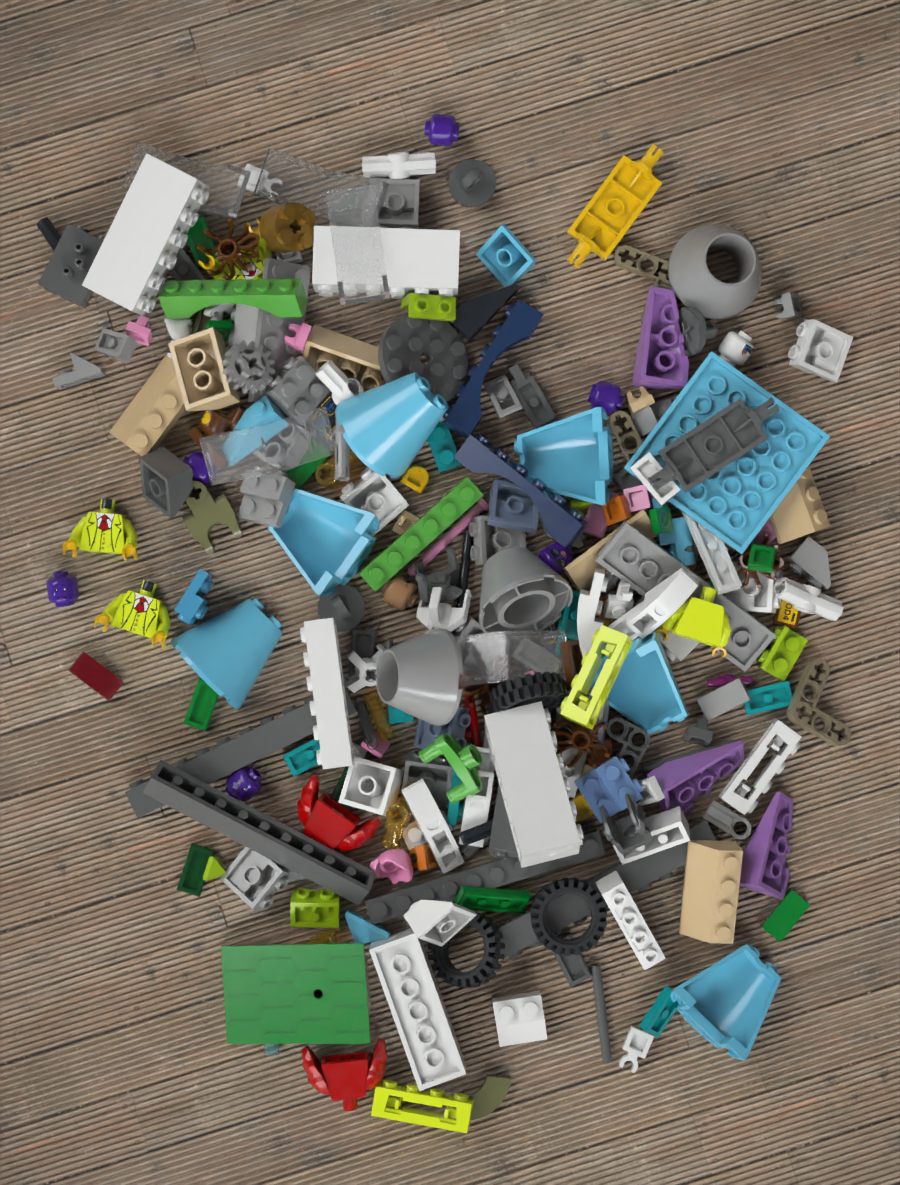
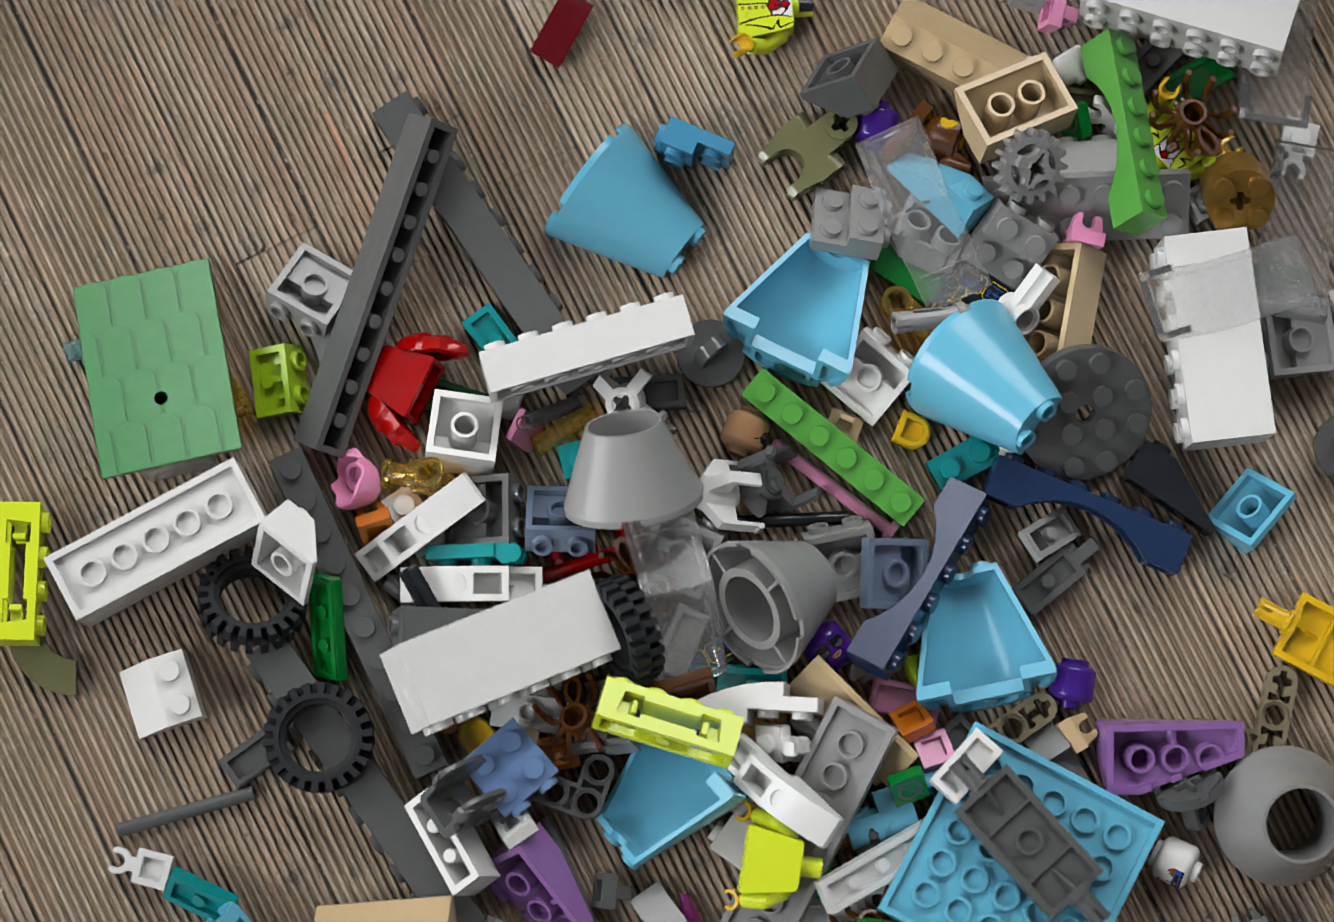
camera: 80 degrees right, 5 degrees down
(138, 614) = (657, 72): neon yellow torso -> none
(194, 868) = (310, 207): dark green tile -> none
(201, 706) = (539, 180): green tile -> none
(214, 868) = (316, 230): lime slope -> none
(243, 784) = (441, 254): dark purple head -> none
(346, 1074) = (51, 458): red torso -> none
(363, 930) = (258, 452): medium azure slope -> none
(430, 306) = (1159, 410): lime bracket -> none
(462, 761) = (518, 550): bright green connector -> none
(630, 920) = (326, 828): white brick -> none

